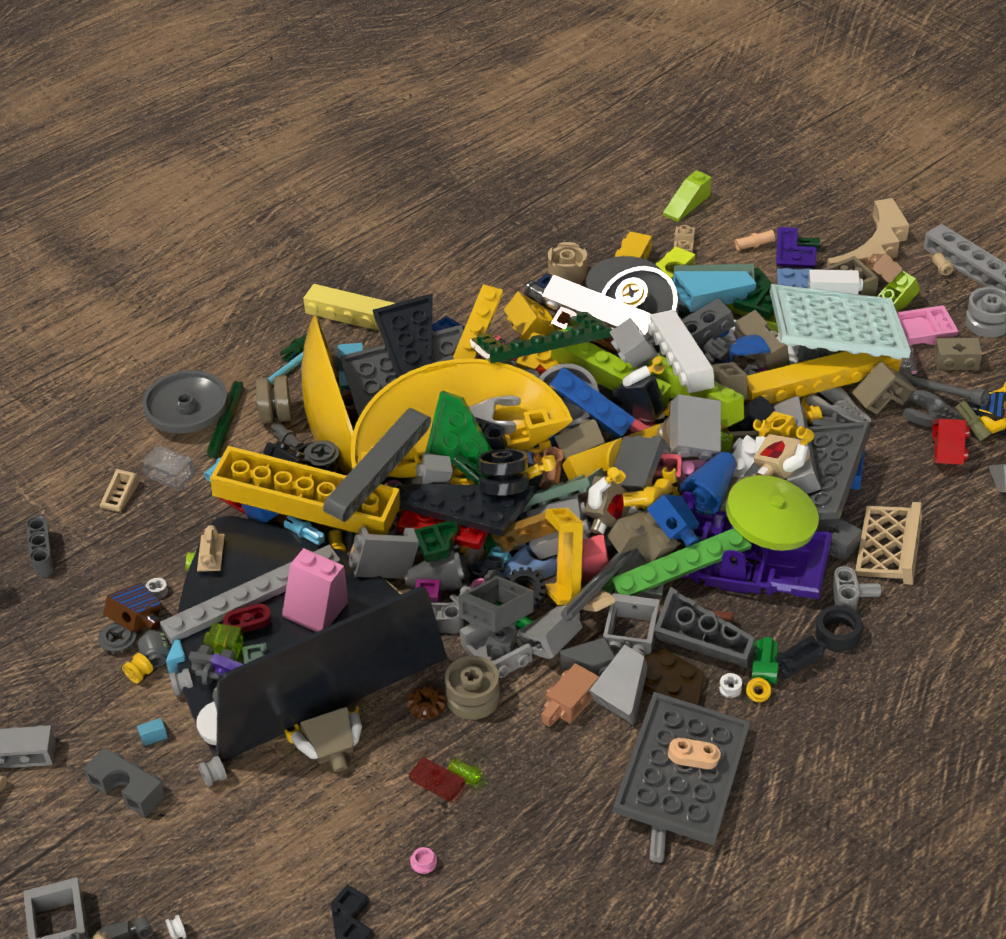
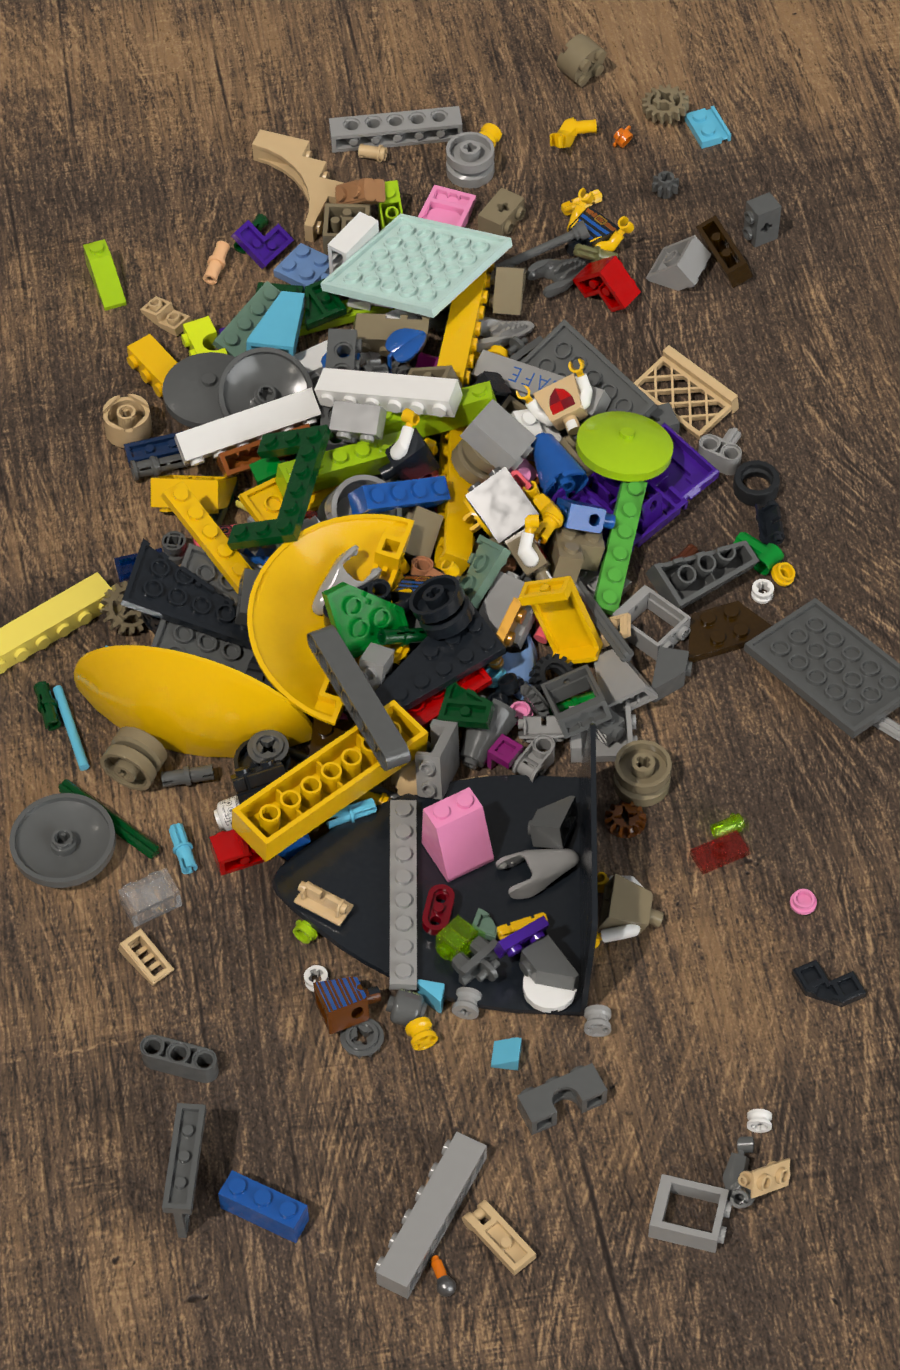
camera: 60 degrees left, 10 degrees up
(569, 695) = (697, 707): nougat hinge -> none
(622, 684) = (718, 661): light grey slope -> none
(639, 287) = (252, 378): gear -> none
(694, 753) = (831, 650): light nougat plate -> none
(782, 425) = (518, 379): yellow brick -> none

